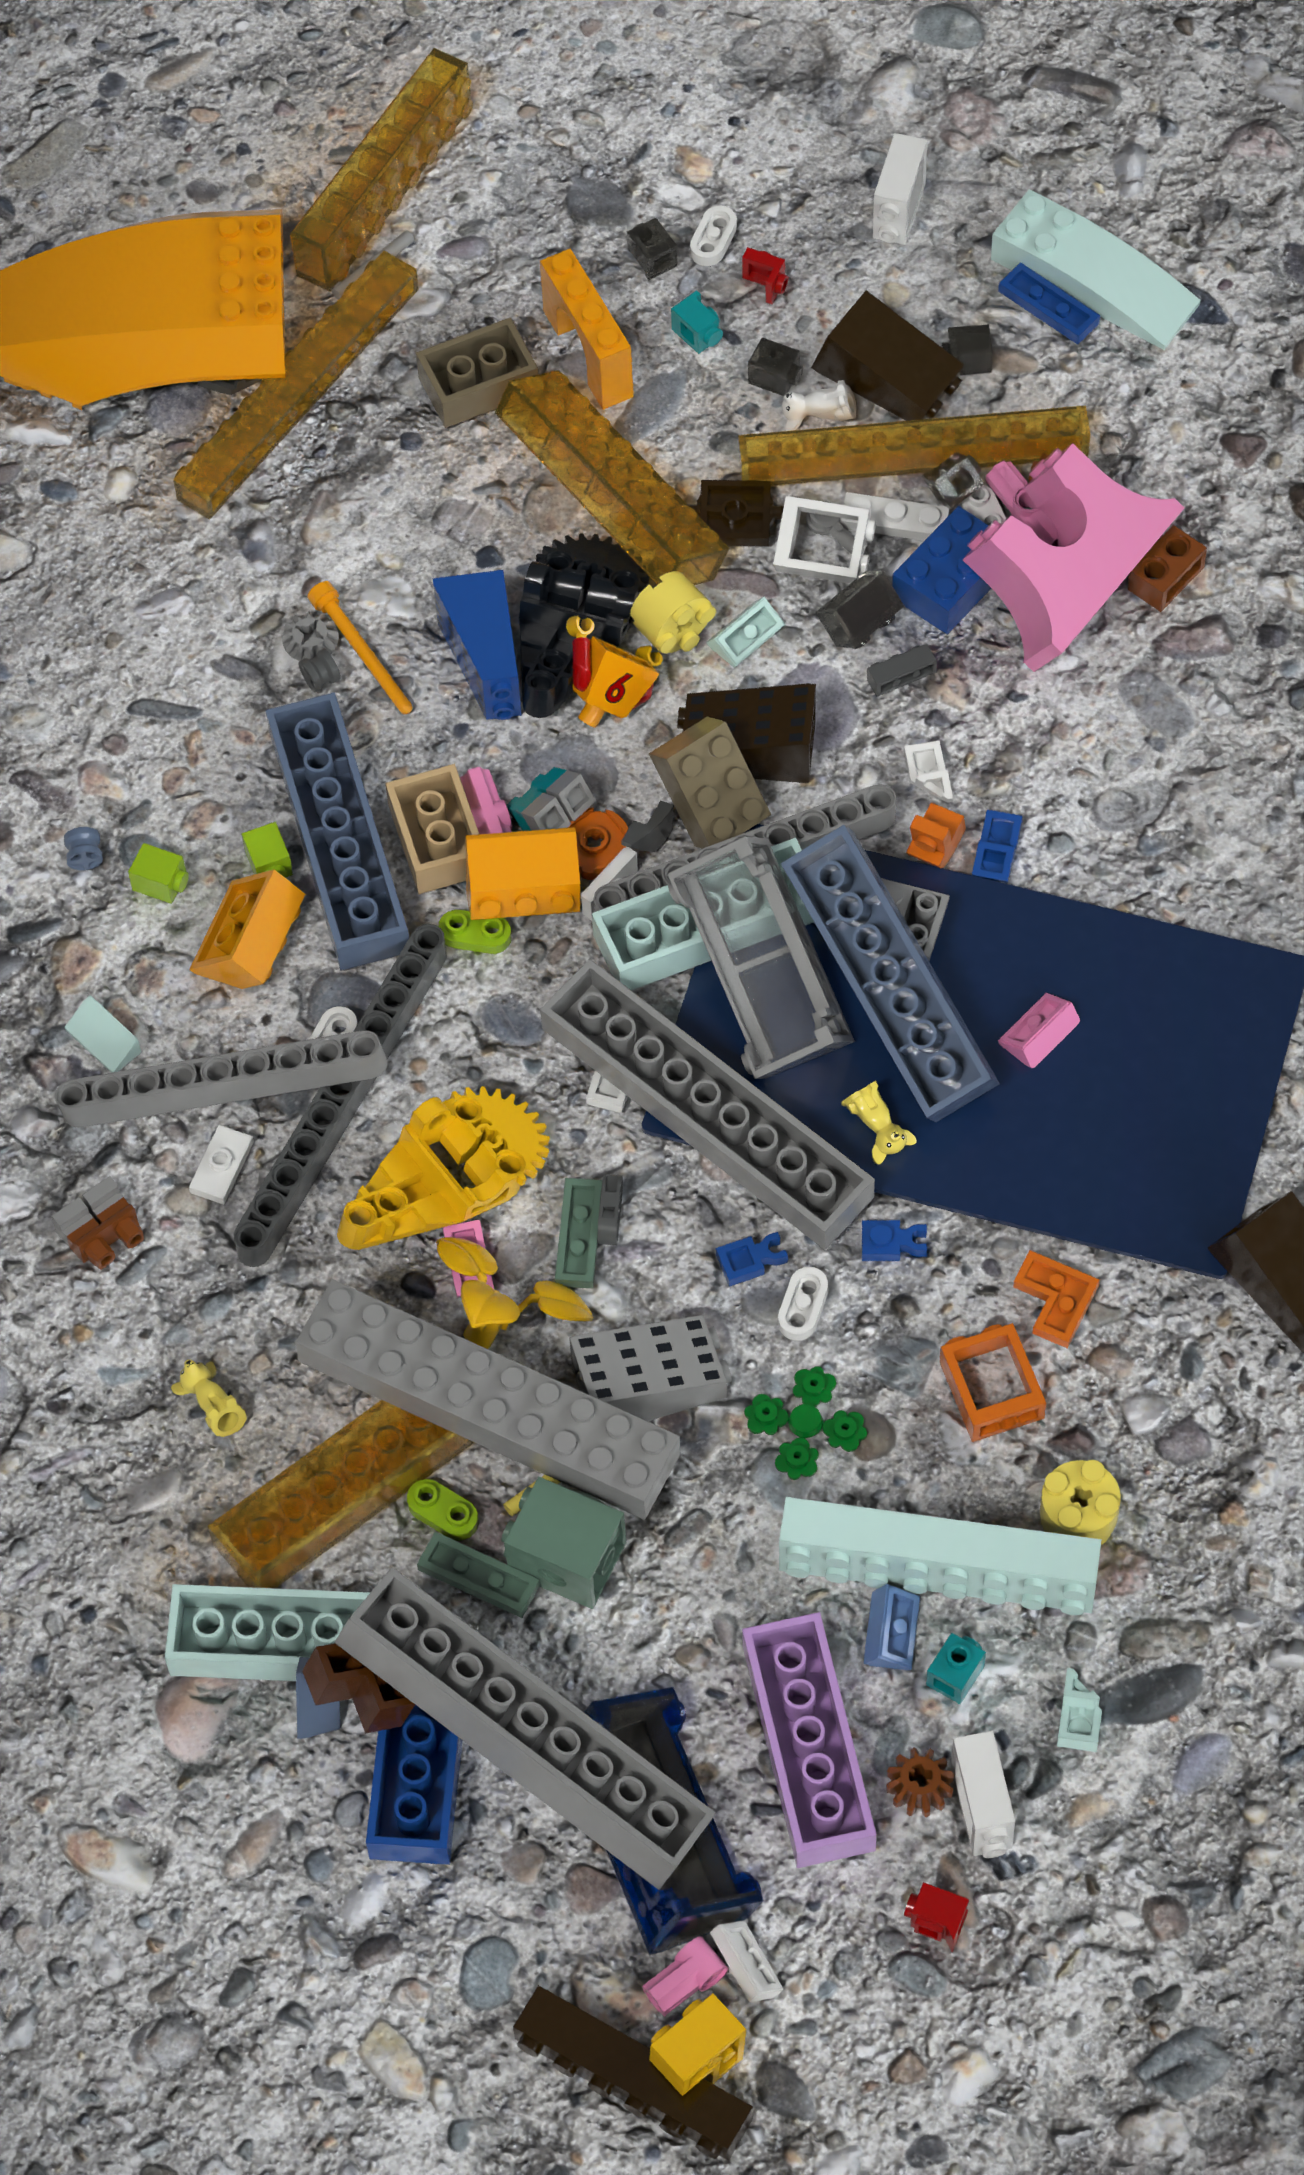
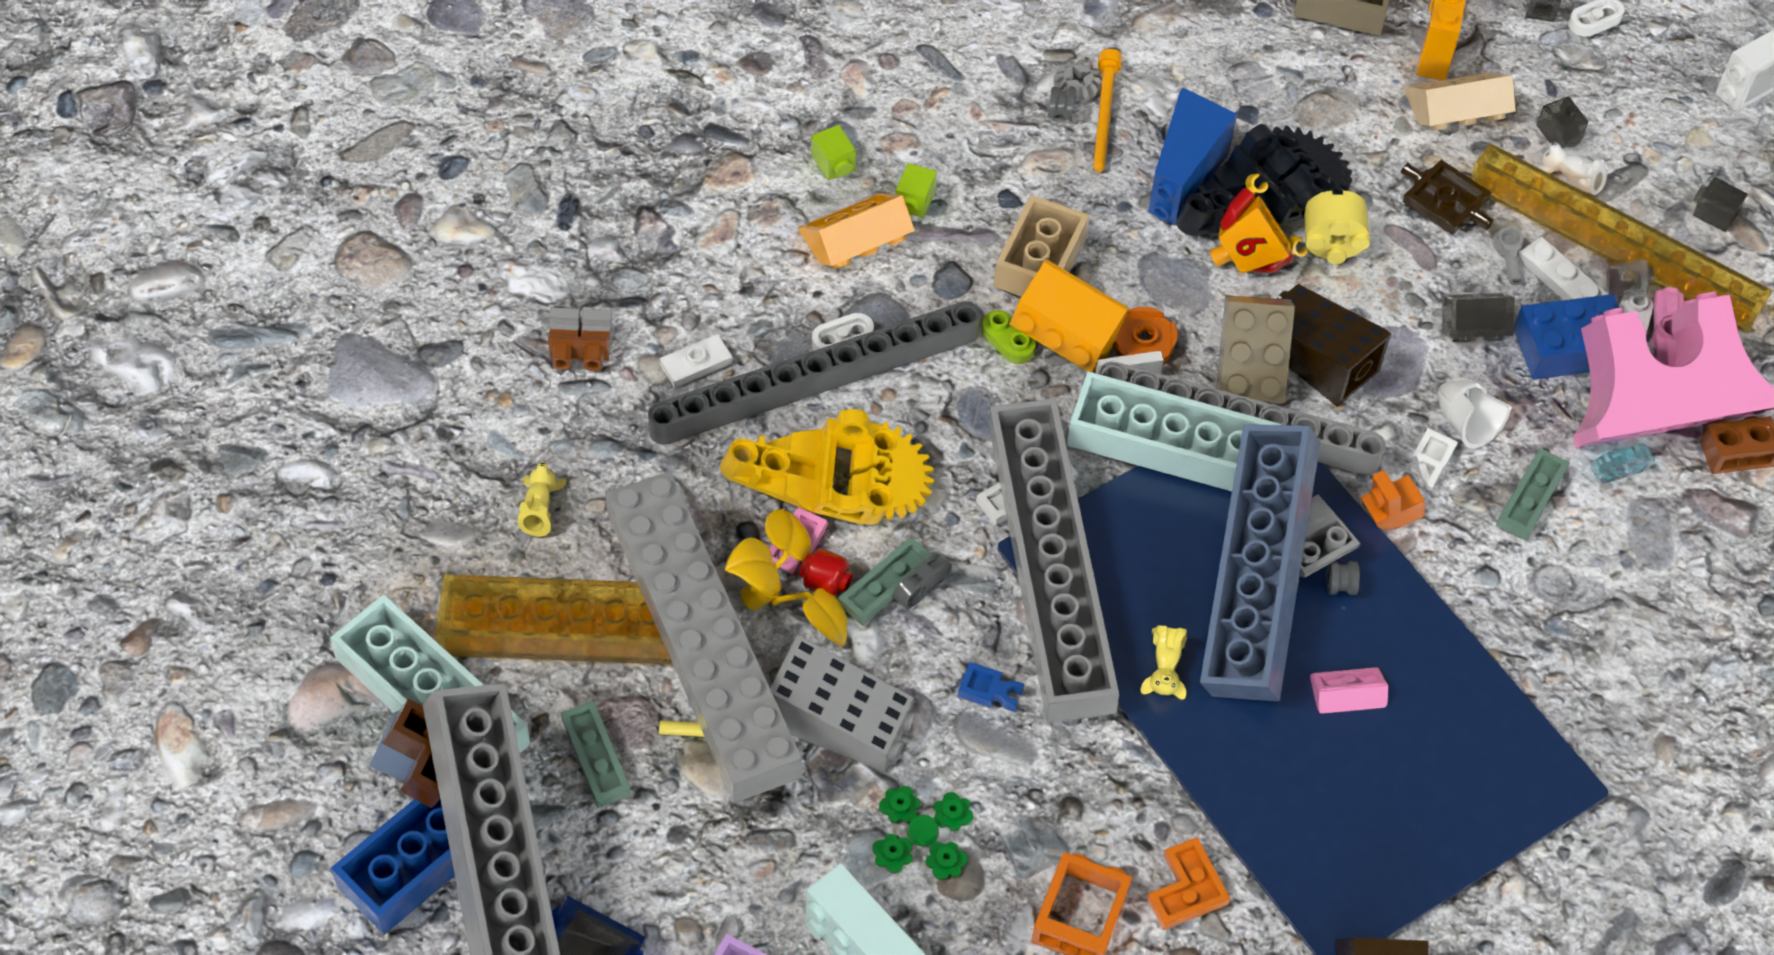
camera: 35 degrees right, 5 degrees down
(83, 848) = (801, 105): sand blue wheel -> none
(103, 1035) = (700, 227): light aqua slope -> none
(203, 1078) = (744, 303): light grey beam -> none
(337, 831) = (973, 206): sand blue brick -> none
(440, 1509) = (616, 690): lime plate -> none
(486, 807) = (1092, 260): bright pink piece -> none
(523, 1266) = (826, 571): none -> red head
(552, 801) = (1146, 284): light grey hips -> none
(565, 1541) = (669, 775): sand green brick -> none
(610, 478) = (1374, 114): clear yellow brick -> none
(652, 835) = (1189, 358): dark grey slope -> none
(668, 404) = (1461, 99): none -> tan slope
(696, 323) = (1531, 61): teal brick -> none
(746, 632) = (1383, 278): light aqua slope -> none
(762, 956) = (1181, 484): clear windscreen -> none
(765, 270) = (1613, 60): red bracket -> none
(788, 531) = (1472, 231): white window -> none
(803, 1306) = (994, 747): white plate -> none
(885, 1240) = (1101, 751): blue plate -> none
(888, 361) = (1650, 169): dark brown slope -> none
(901, 669) = (1492, 378): dark grey piece -> none
(927, 703) = (1472, 411): none -> white helmet
(955, 936) = (1342, 578): none -> dark grey wheel
(997, 846) = (1437, 544): blue slope -> none
(1038, 741) = (1532, 494): none -> sand green plate
(1086, 658) = (1622, 463): none -> clear light blue beam

